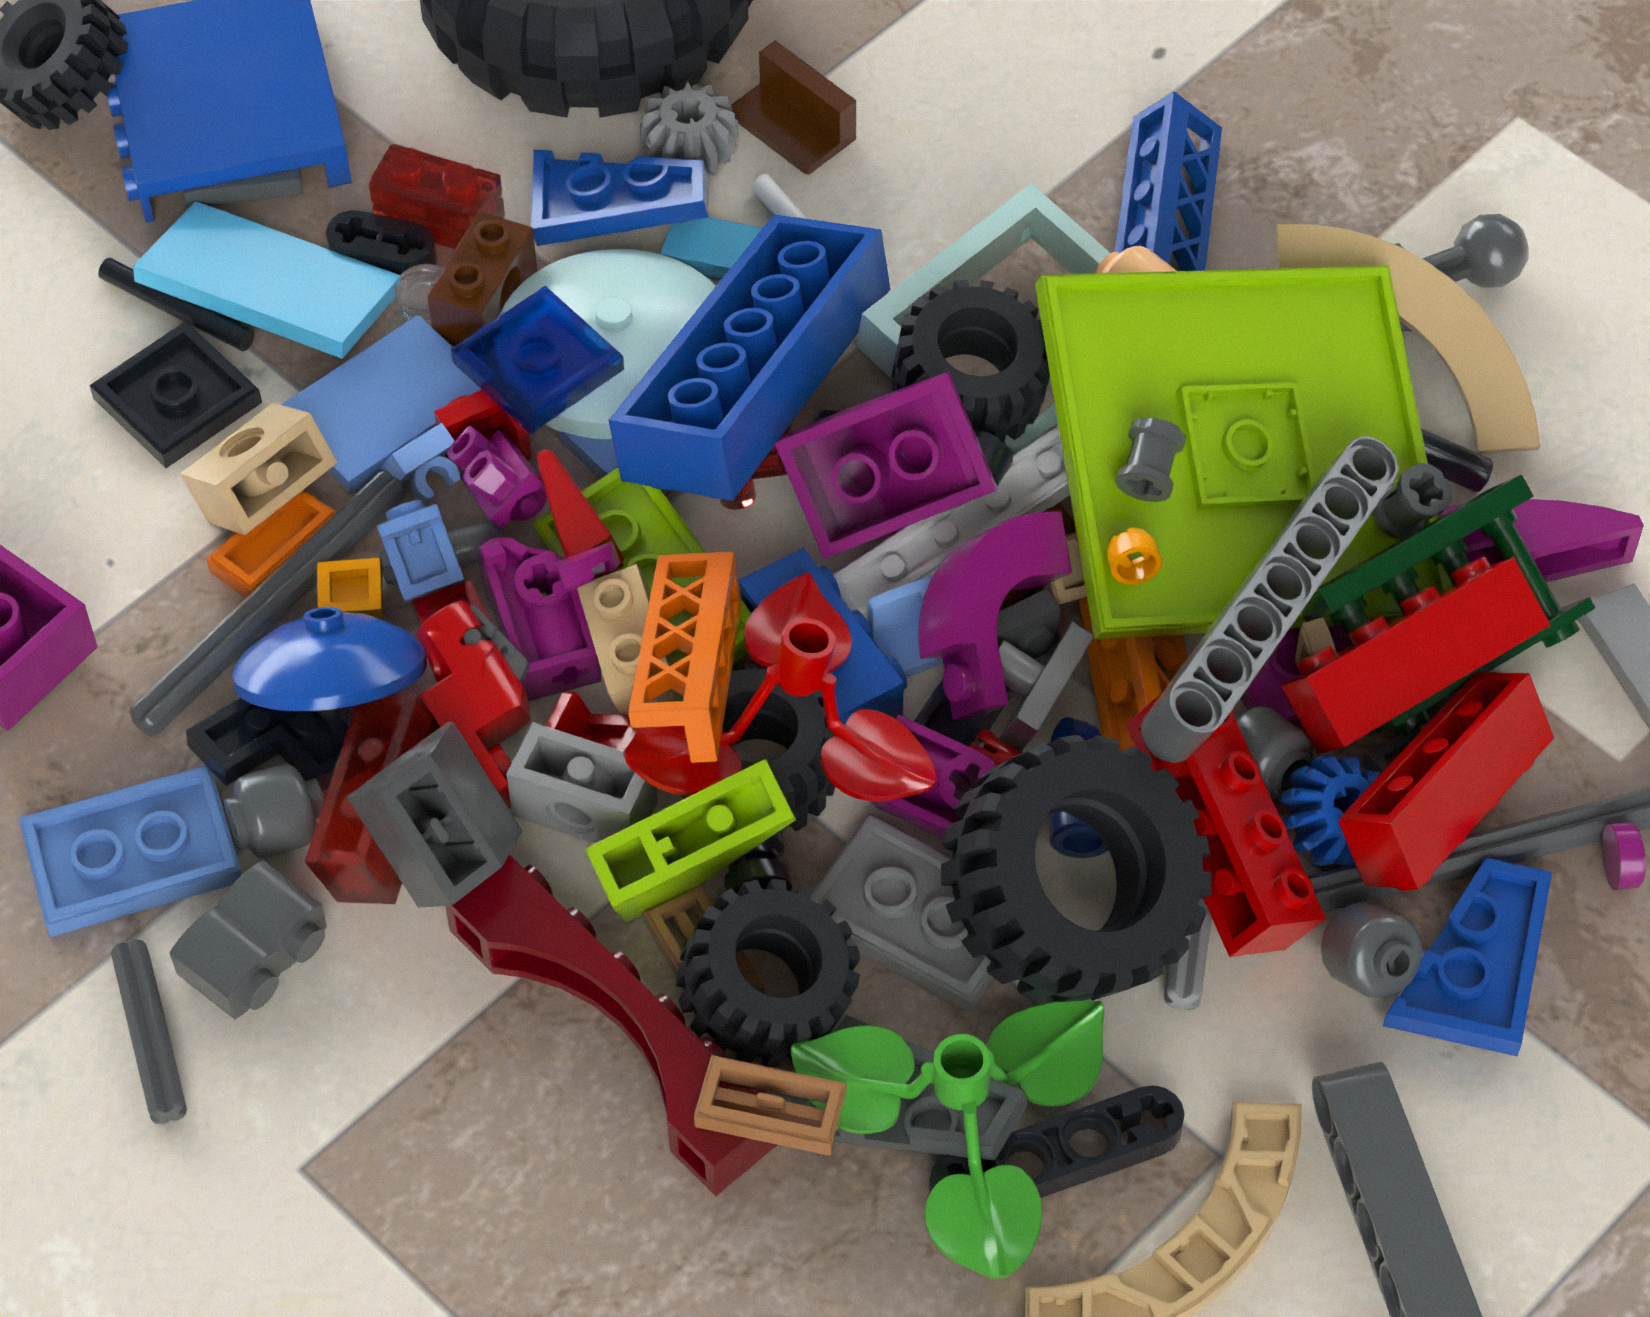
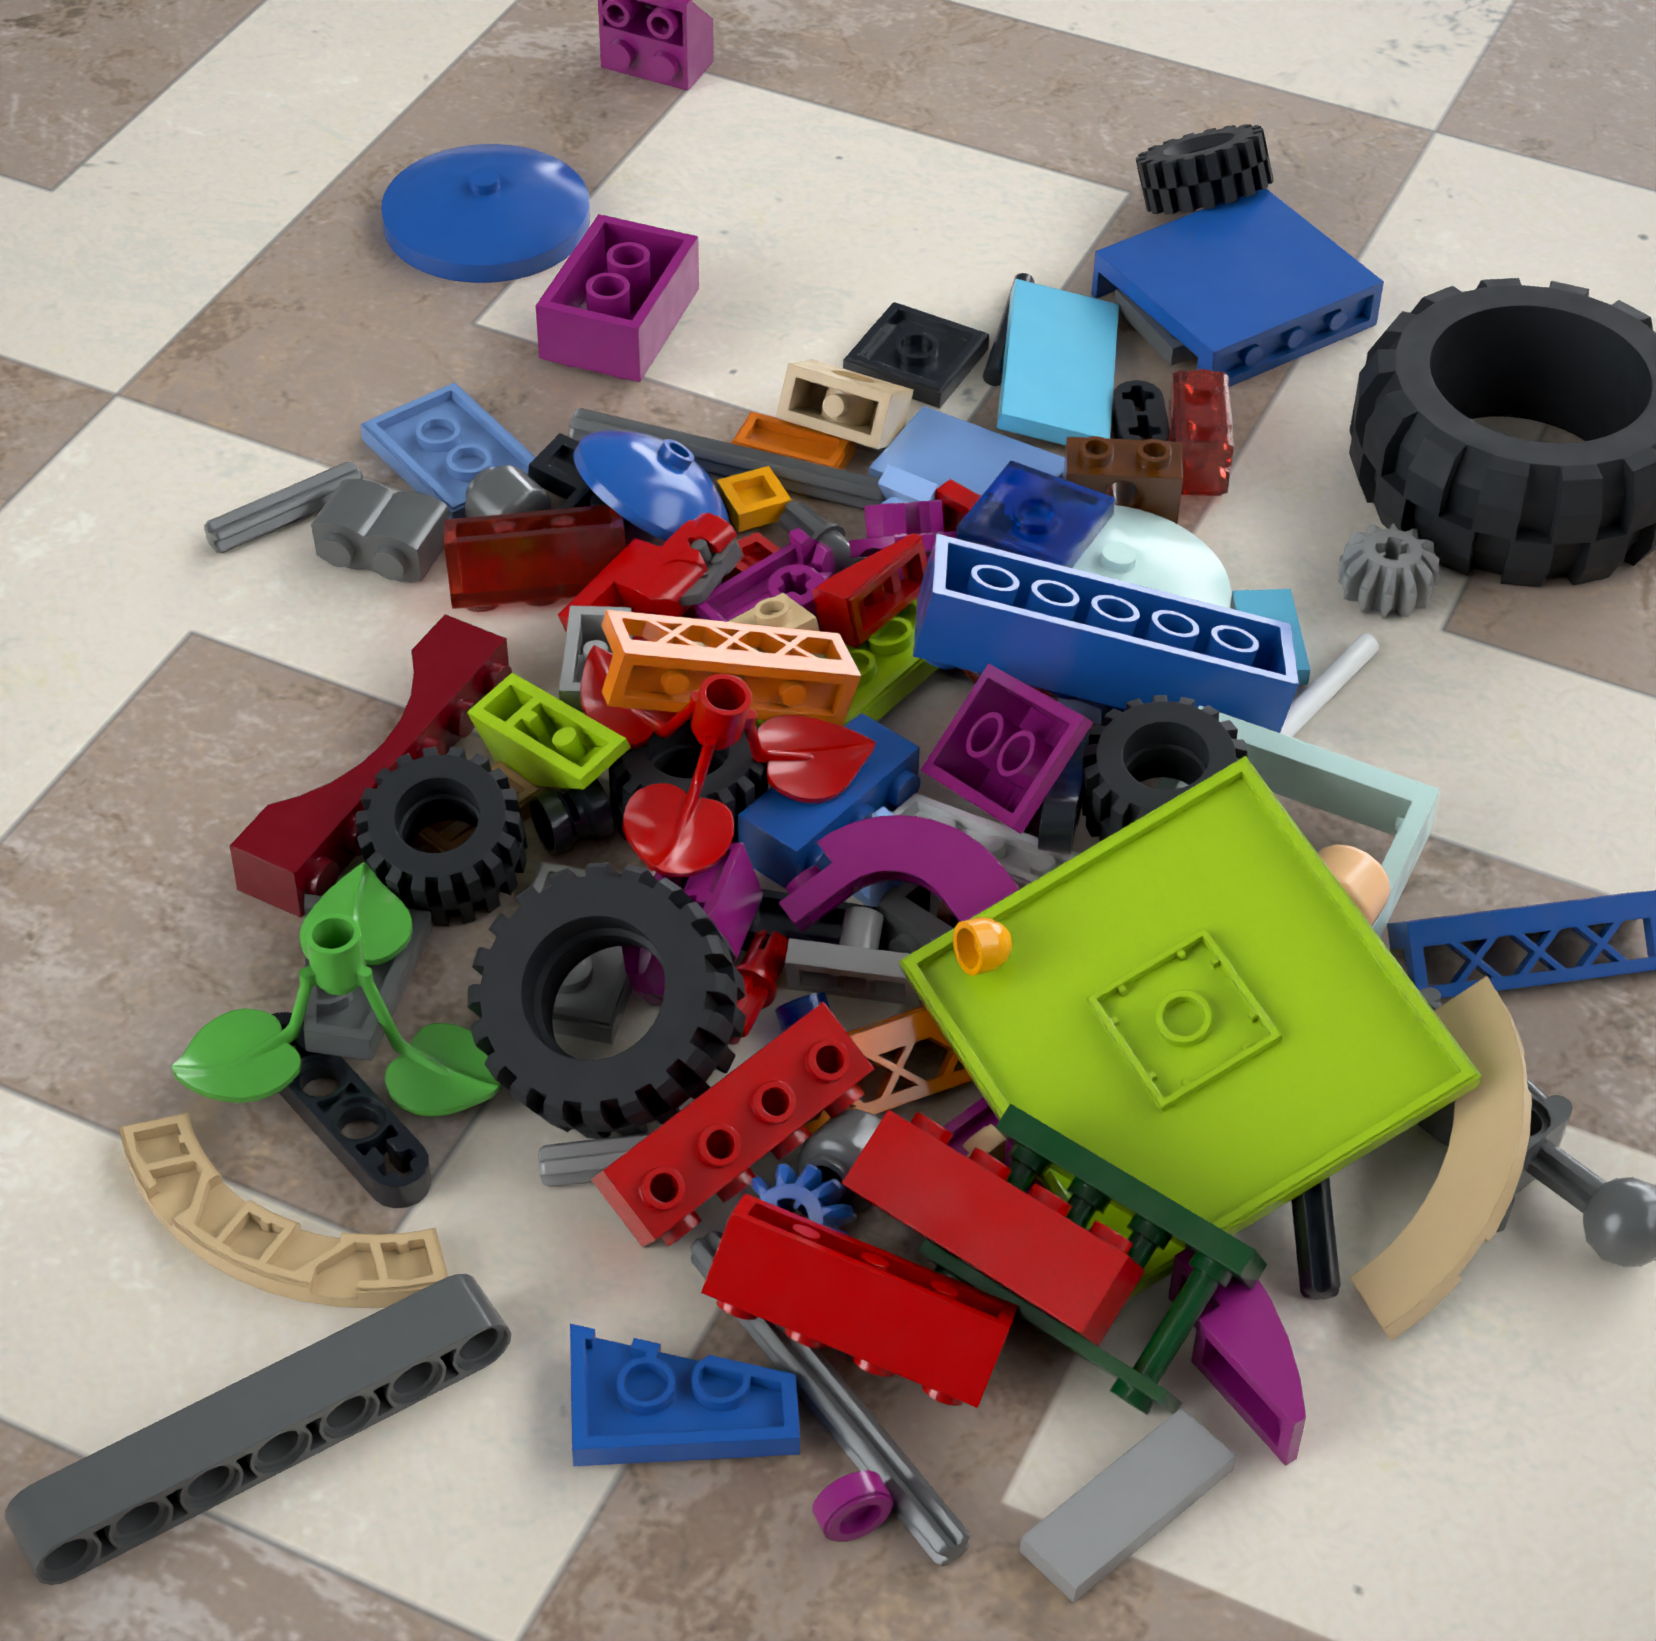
camera: 70 degrees right, 10 degrees down
(419, 550) = (796, 502): medium blue bracket -> none
(438, 819) = (503, 569): dark grey slope -> none
(582, 567) = (801, 589): magenta tile -> none
(607, 198) = (1274, 538): blue wing -> none
(755, 1123) = (294, 898): medium nougat tile -> none
(797, 110) = (1465, 642): reddish brown panel -> none
(1150, 459) = (1091, 918): dark grey bush -> none
(1268, 601) = (1010, 1045): dark grey beam -> none
(1371, 950) = (637, 1291): dark grey head -> none
(1415, 497) = (1214, 1172): dark grey bush -> none

